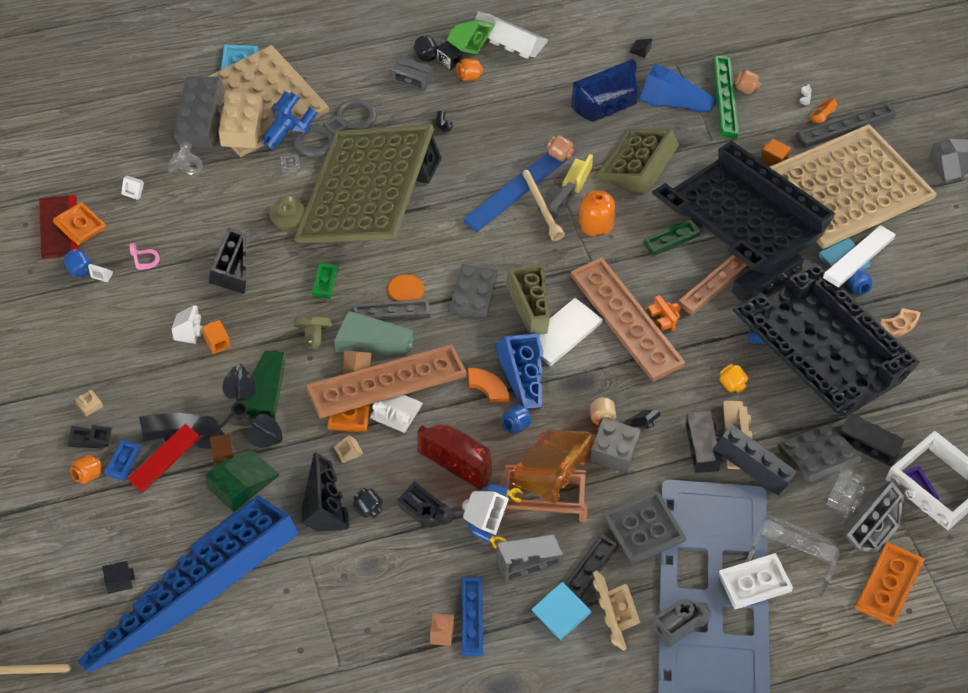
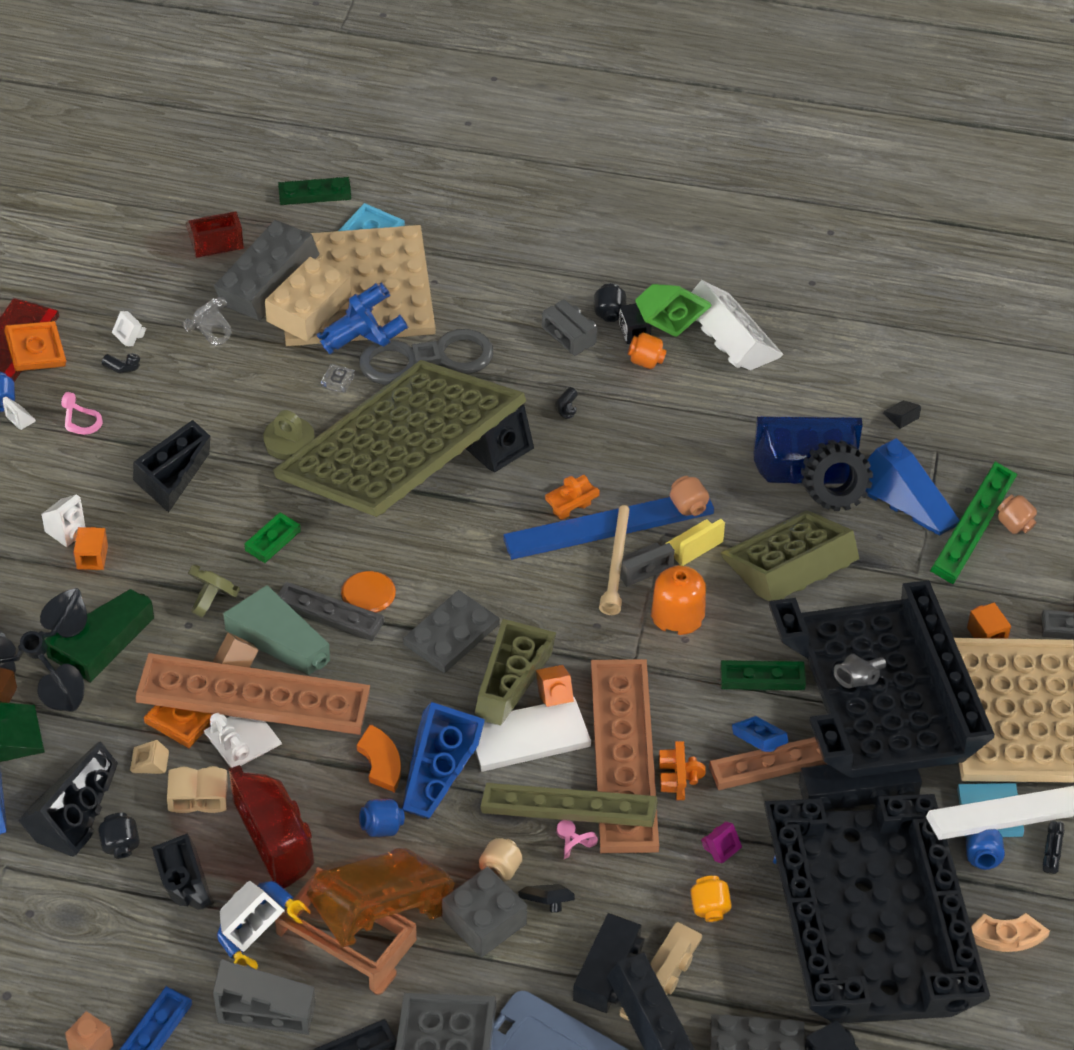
camera: 30 degrees right, 5 degrees down
(144, 101) = (215, 234): none -> clear red slope
(145, 213) = (122, 366): none -> black arm
(185, 49) = (314, 191): none -> dark green plate
(394, 454) = (197, 790): none -> tan brick
(489, 178) = (571, 495): none -> orange hips
(561, 295) = (554, 685): none -> orange brick
(620, 361) = (569, 804): none -> olive plate
(624, 378) = (566, 831): none -> bright pink piece
(627, 96) = (851, 489): none -> black tyre
(696, 271) = (760, 734): none -> blue plate
(717, 344) = (722, 842): none -> magenta tile
(730, 211) = (858, 672): none -> flat silver piece
(891, 265) = (1053, 847): none -> black axle

